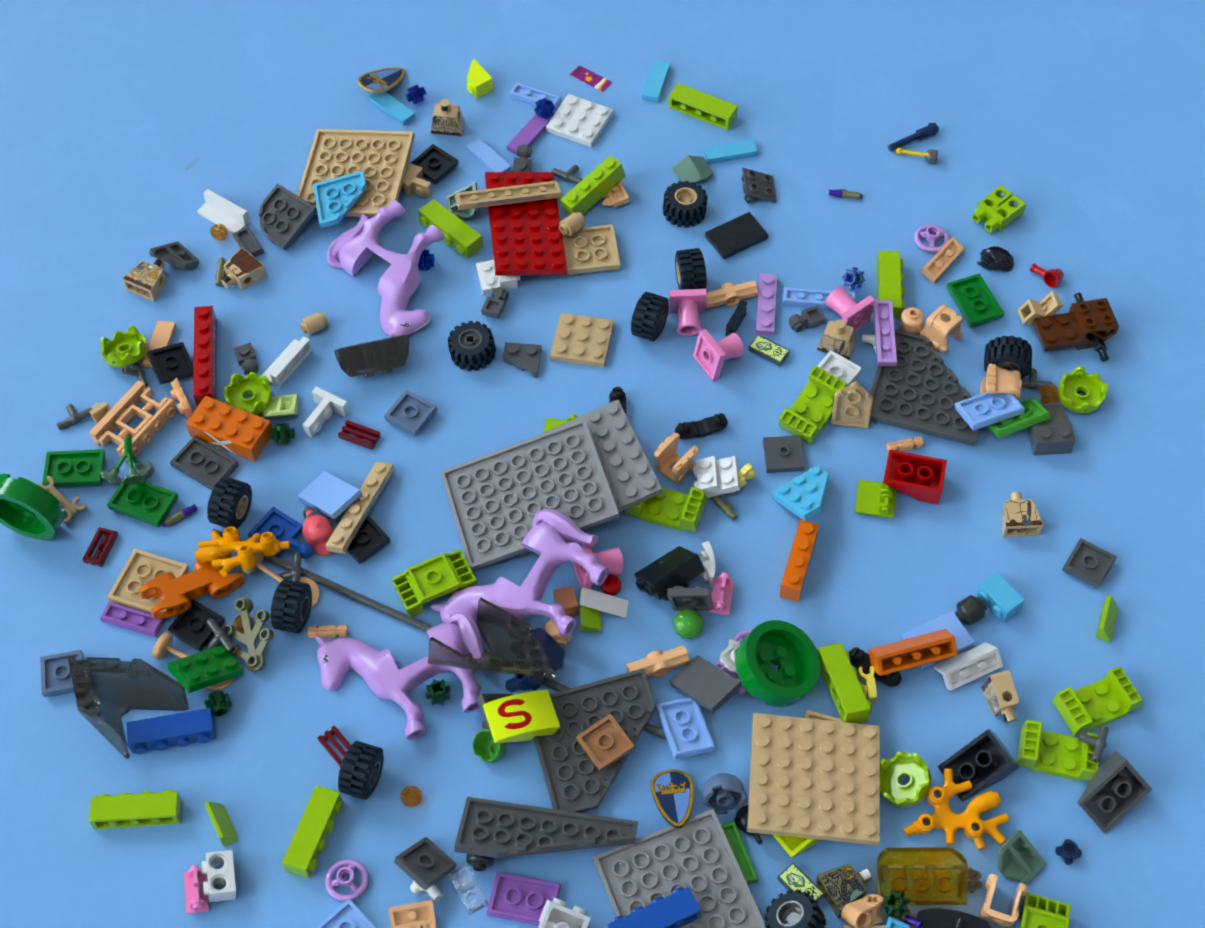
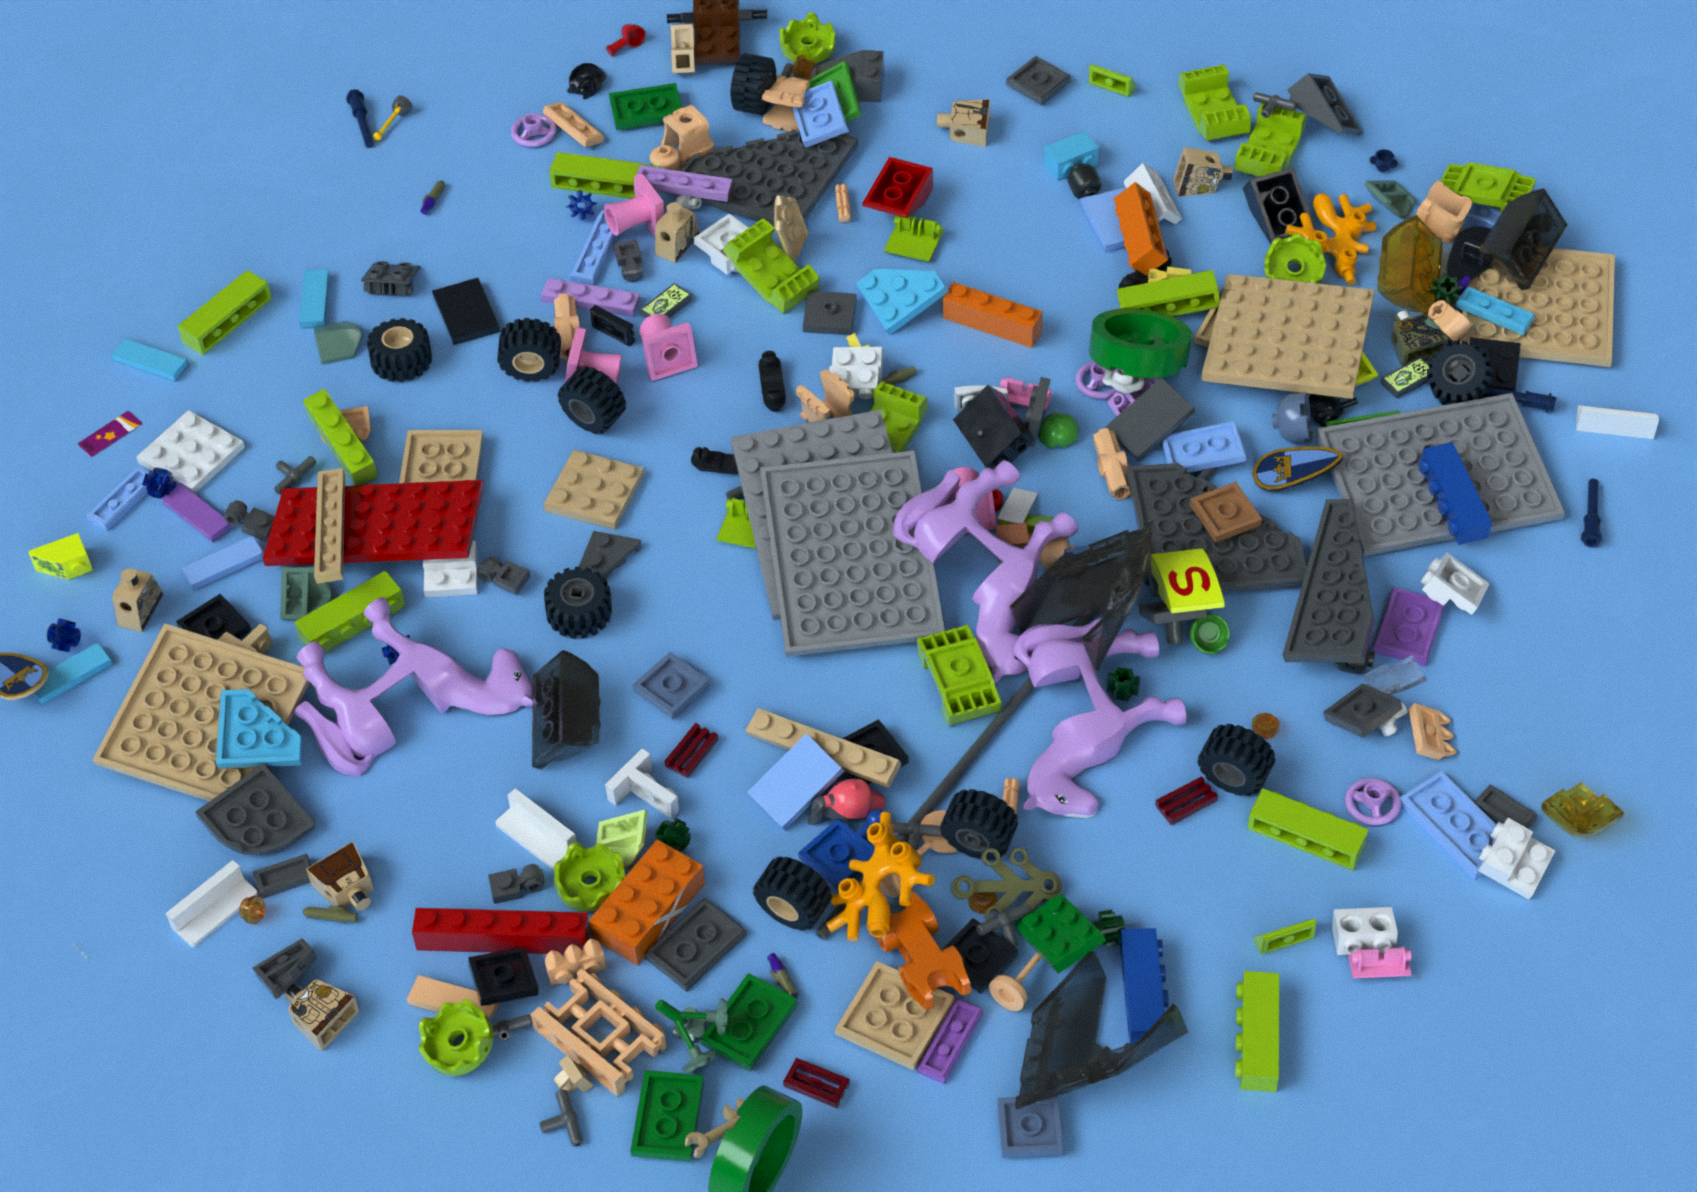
camera: 80 degrees left, 5 degrees down
(314, 323) = (477, 790): tan brick -> none
(572, 224) = (400, 466): tan brick -> none
(998, 210) = (513, 62): lime hips -> none

